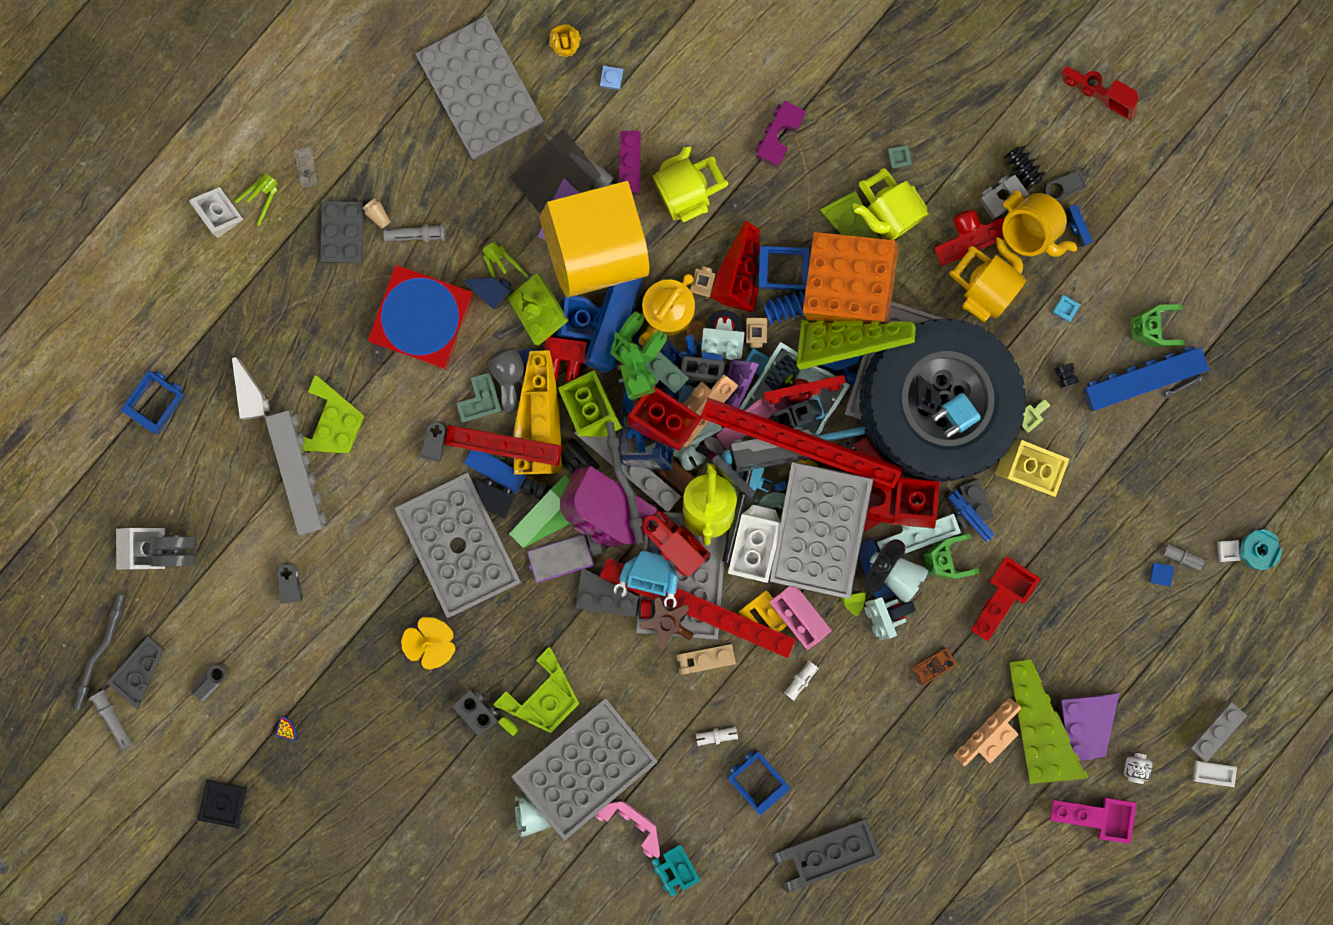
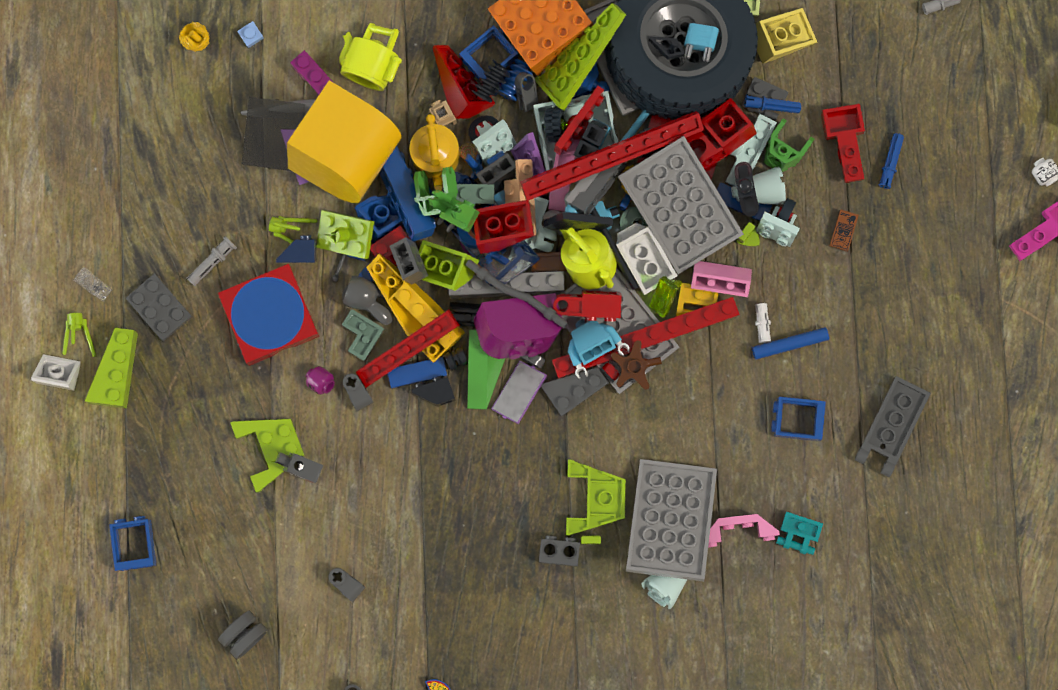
camera: 40 degrees left, 5 degrees down
(134, 548) = (214, 658): white slope -> none
(249, 396) = (198, 478): white slope -> none
(259, 254) = (114, 373): none -> lime wedge
(295, 472) = (278, 500): light grey brick -> none
(338, 468) = (306, 468): none -> dark grey torso
(376, 213) = (171, 272): tan cone -> none
(413, 406) = (320, 380): none -> magenta head
(434, 642) = (485, 530): yellow piece -> none
(451, 513) = (409, 443): light grey plate -> none
(479, 88) = (164, 123): light grey plate -> none
(566, 377) = (408, 260): none -> dark grey brick
(706, 659) = (684, 368): tan plate -> none
(716, 736) = (741, 414): white pin -> none
(743, 588) = (664, 295): none -> clear neon green tile
(756, 332) = (510, 114): tan window -> none
(759, 358) = (523, 131): dark azure tile -> none
(764, 294) = (491, 82): none -> black piece
(784, 329) = (526, 95): none -> dark grey piece
(808, 716) = (790, 343): none -> blue piece
(991, 736) = (927, 241): light nougat bracket -> none
(1023, 646) = (891, 161): none -> blue axle
(1043, 734) = (962, 207): lime wing -> none
(1089, 723) = (983, 175): medium lavender wedge -> none
(1161, 574) = (937, 28): blue tile -> none

